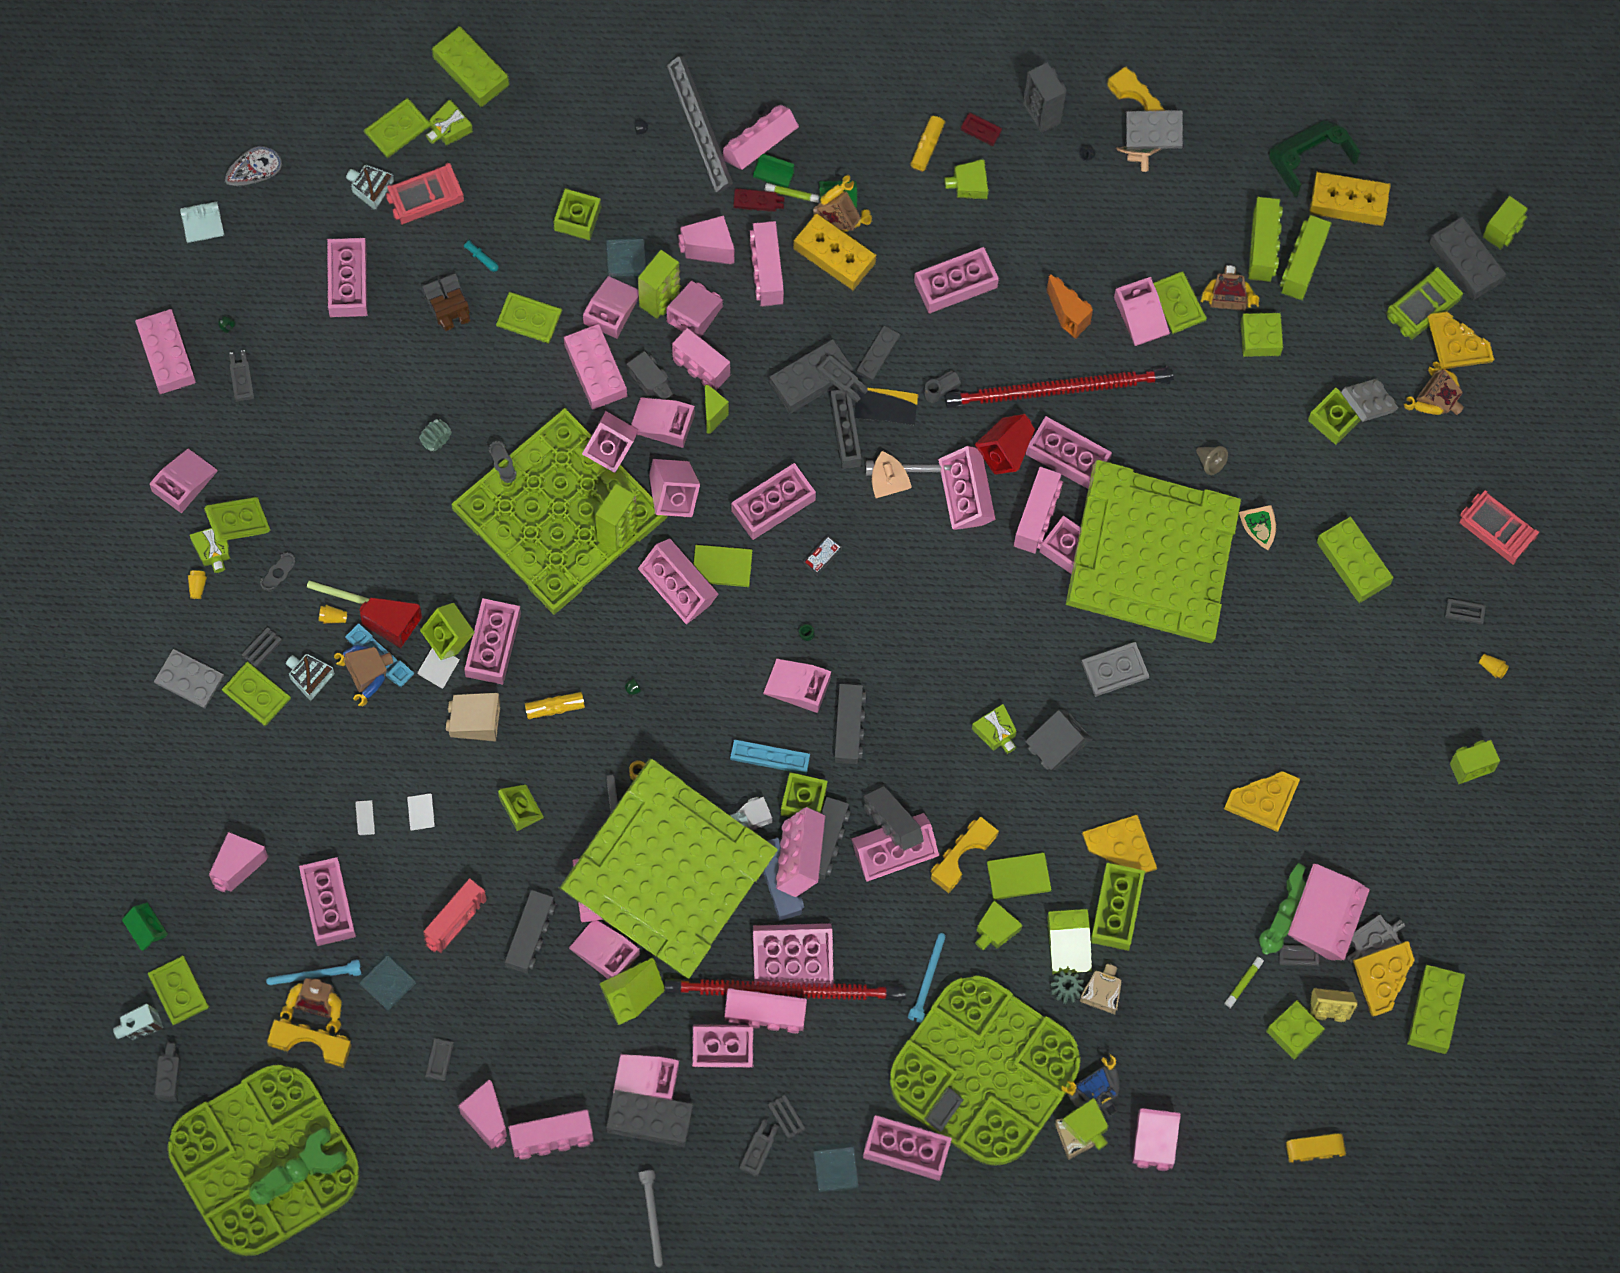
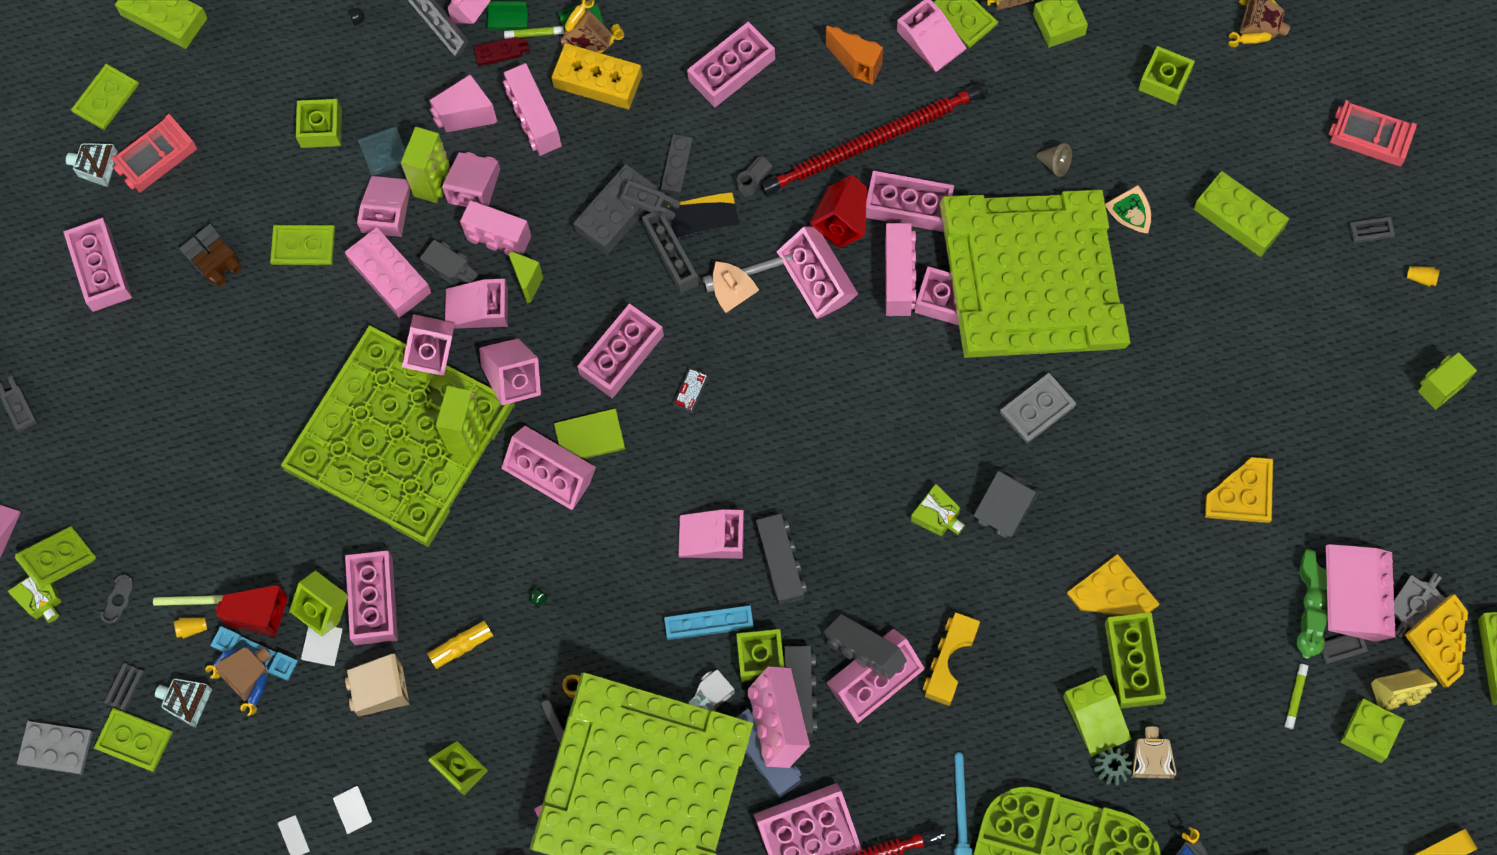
camera: 10 degrees left, 0 degrees up
(196, 583) = (32, 641): yellow cone -> none
(435, 435) = (241, 398): sand green gear -> none
(448, 125) = (157, 76): lime torso -> none
(477, 252) = (228, 196): teal piece -> none
(499, 452) = (314, 395): dark grey piece -> none
(804, 630) = (699, 476): dark green hinge -> none
(996, 927) = (1014, 726): lime torso -> none
(1018, 876) = (1017, 662): lime tile -> none
(1369, 400) = (1195, 47): light grey plate -> none

